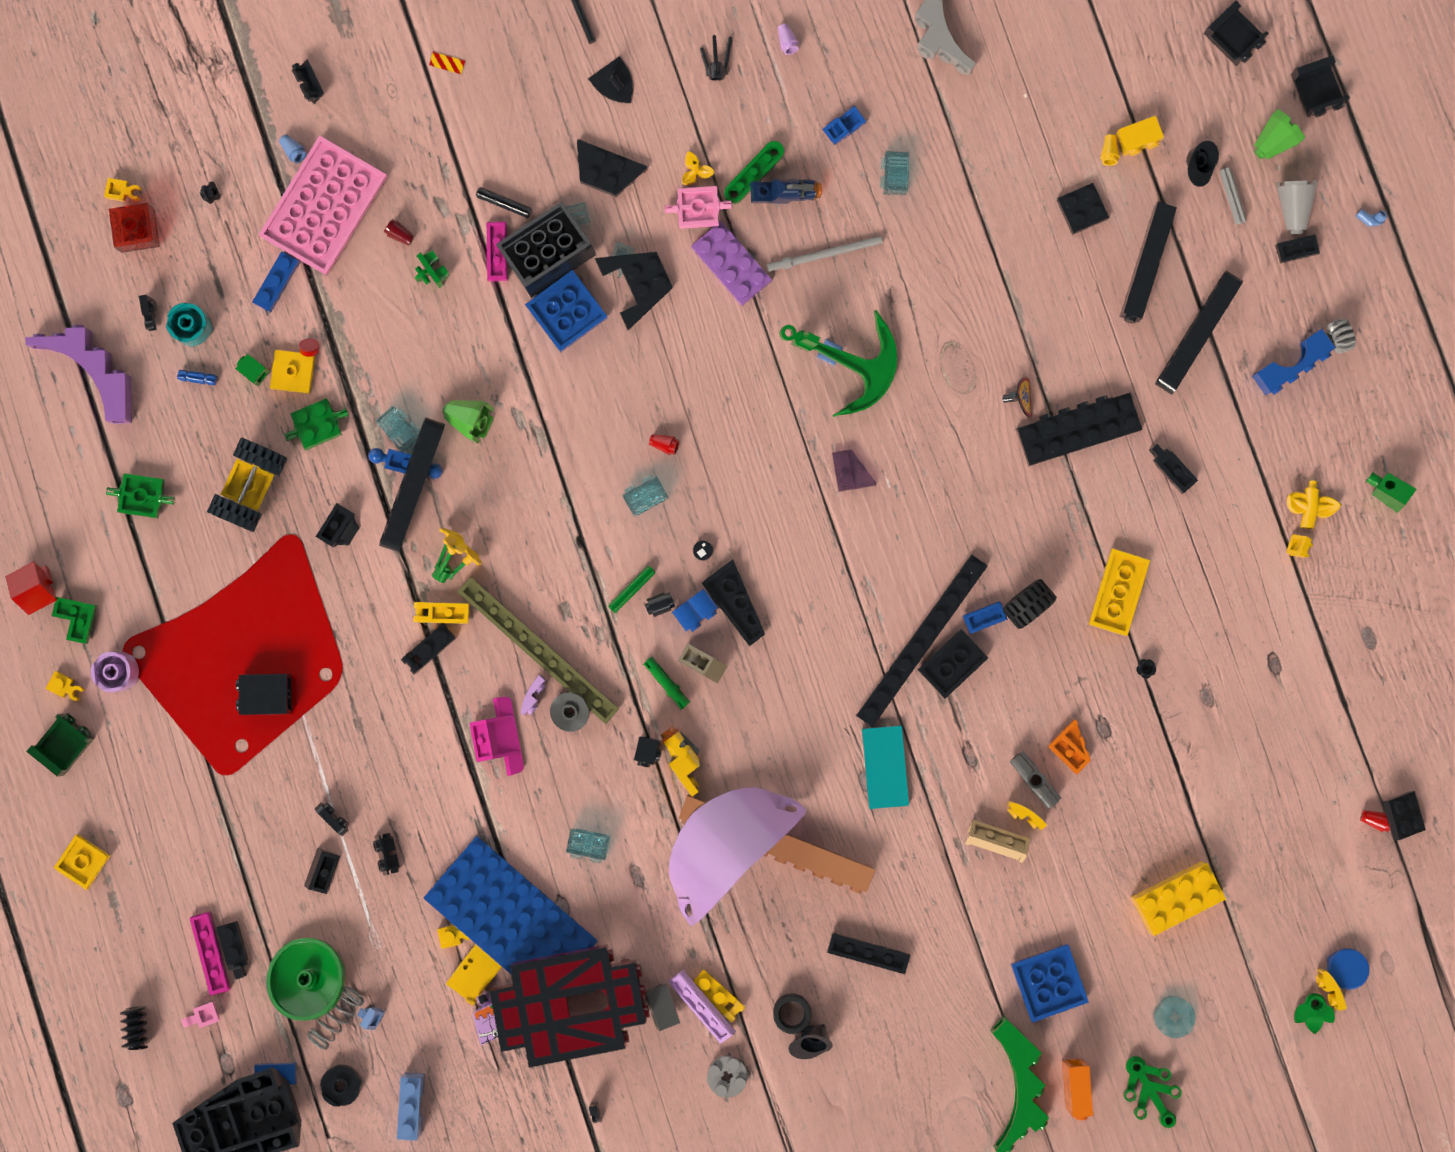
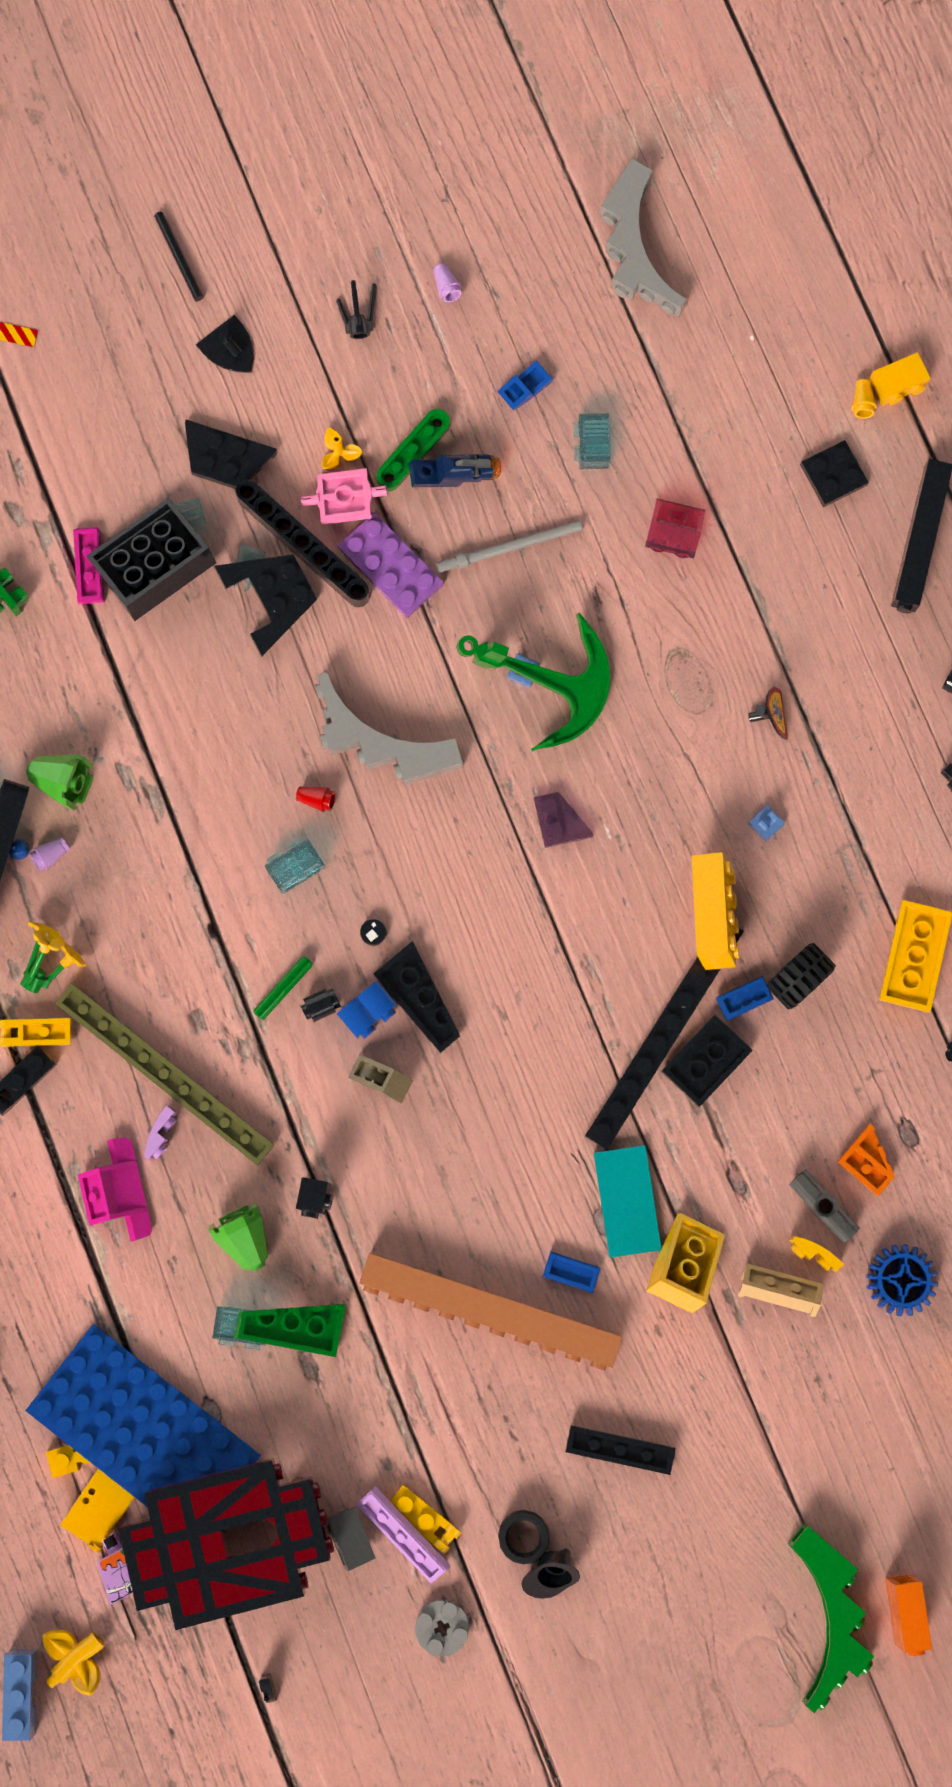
camera: 10 degrees left, 5 degrees down
(452, 1083) = (73, 1660): none -> yellow plant
(456, 476) = (47, 854): none -> lavender cone
(503, 202) = (94, 503): black axle -> none
(563, 718) = (200, 1160): dark grey dish -> none
(566, 311) = (181, 636): blue plate -> none
(592, 777) = (242, 1237): none -> bright green cone
(632, 849) = (297, 1328): none -> green wing
(659, 234) = (298, 532): none -> black beam
(665, 681) = (331, 1103): green pin -> none
(685, 757) = (363, 1202): yellow plate -> none
(724, 842) = (419, 1311): lavender piece -> none
(740, 418) = (413, 759): none -> light grey arch
(839, 818) = (571, 1272): none -> blue tile
(927, 817) = (686, 1264): none -> yellow slope
(955, 246) = (675, 528): none -> clear pink slope
(966, 550) = (714, 911): none -> yellow brick
(1011, 482) = (766, 823): none -> medium blue tile
(1049, 983) = (861, 1475): blue plate -> none
(1078, 428) = (848, 749): black plate -> none
(1091, 829) = (903, 1267): none -> blue gear

